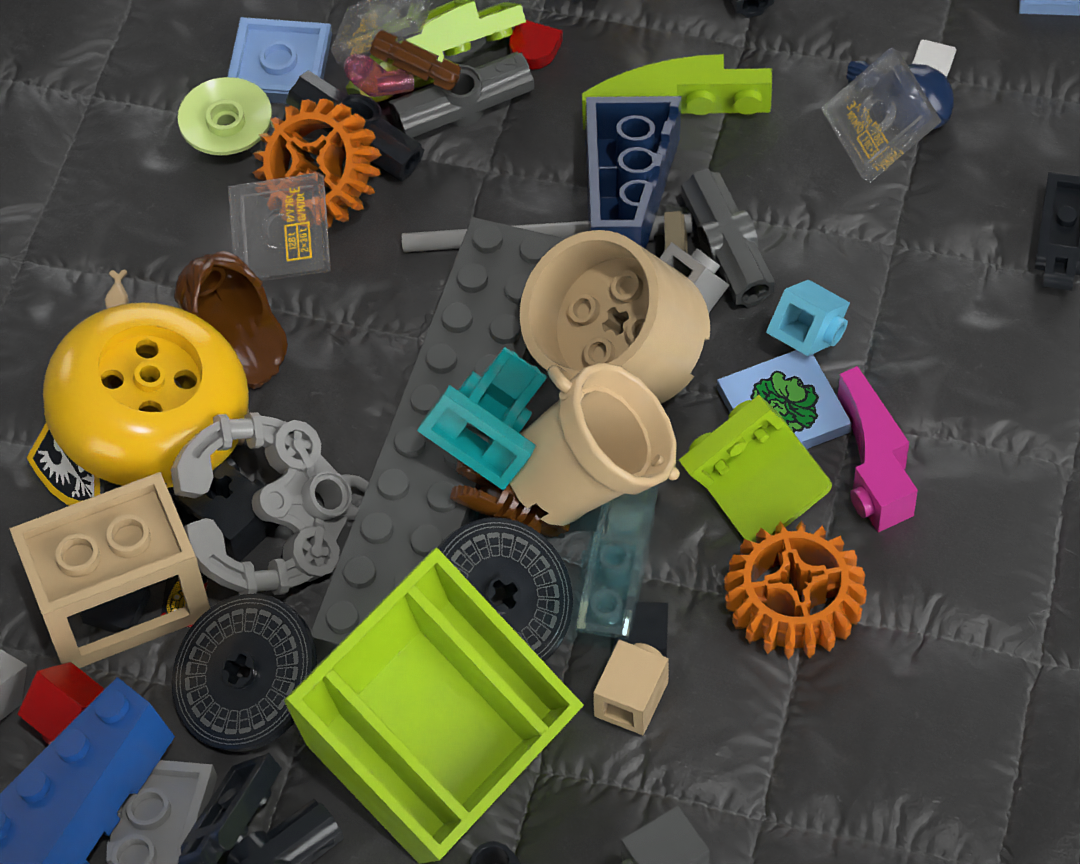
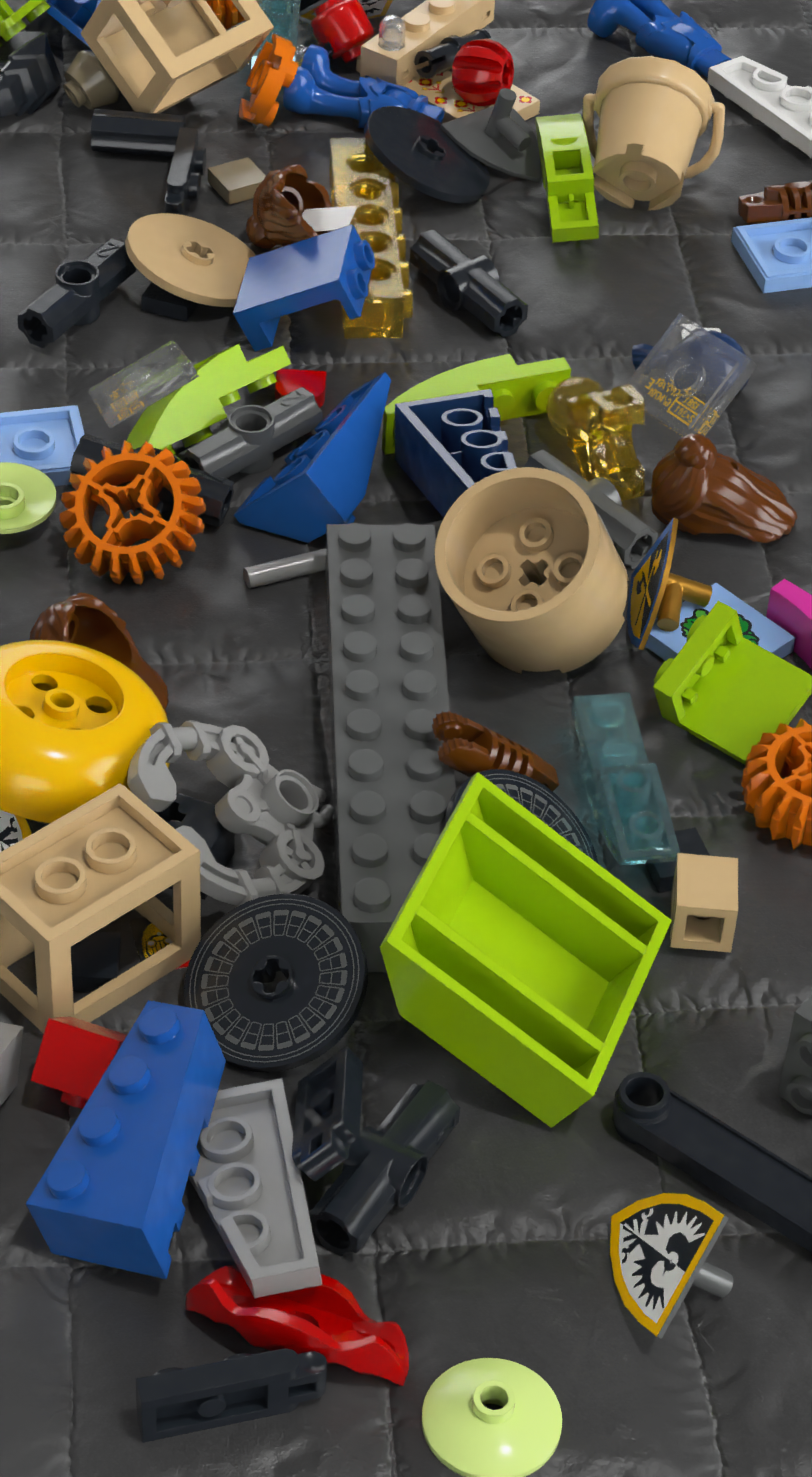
camera: 25 degrees left, 15 degrees down
(281, 226) = (121, 566): clear tile -> none
(374, 79) = (162, 428): clear pink arm -> none
(415, 60) = (202, 401): reddish brown axle -> none
(495, 407) = (449, 667): teal tile -> none
(502, 161) = (324, 474): none -> blue wedge
(595, 444) = (568, 676): tan piece -> none
(755, 350) = (658, 589): none -> shield
(769, 133) = (600, 430): none -> clear yellow piece
(809, 318) = (712, 553): medium azure brick -> none
(856, 253) = (717, 494): none -> reddish brown hair

